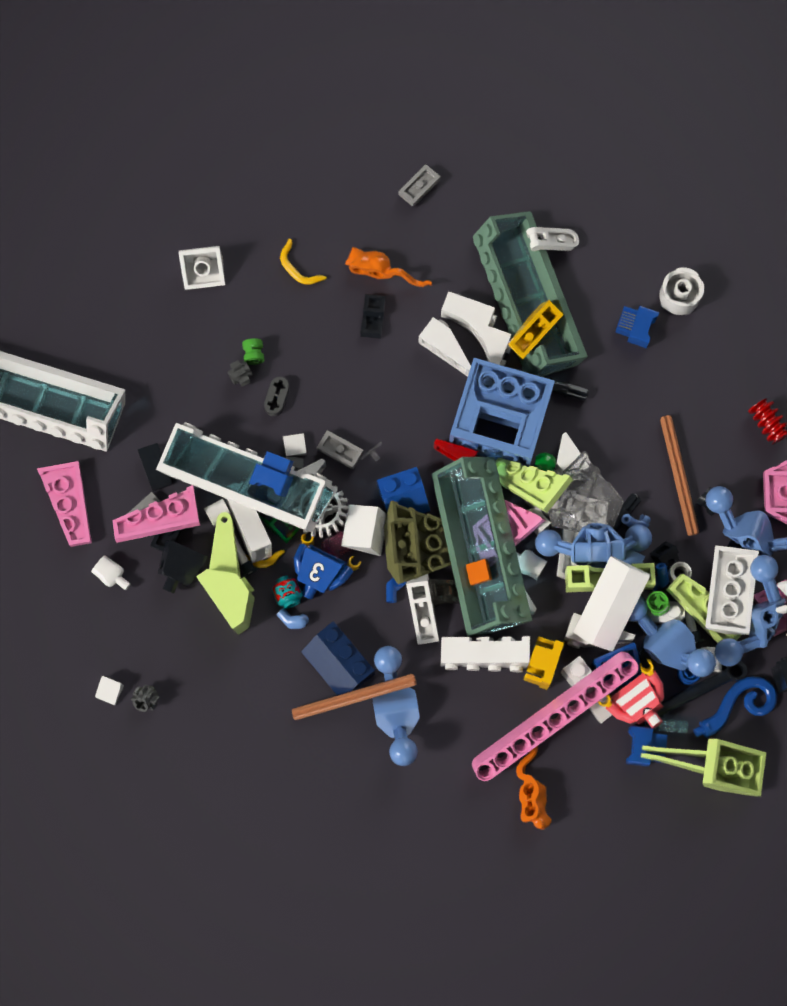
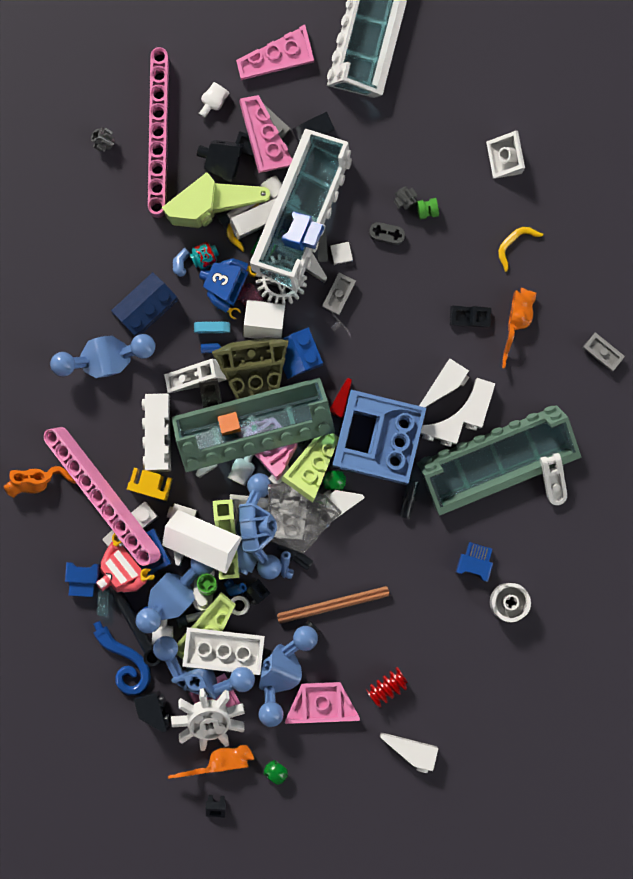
camera: 80 degrees right, 10 degrees up
(109, 690) = (109, 108): white slope -> none
(134, 630) = (158, 123): none -> bright pink beam
(354, 697) = (111, 319): nougat axle -> none
(368, 588) = (211, 327): none -> medium azure beam
(535, 328) = (461, 464): yellow slope -> none
(726, 768) = (65, 647): yellowish green slope -> none

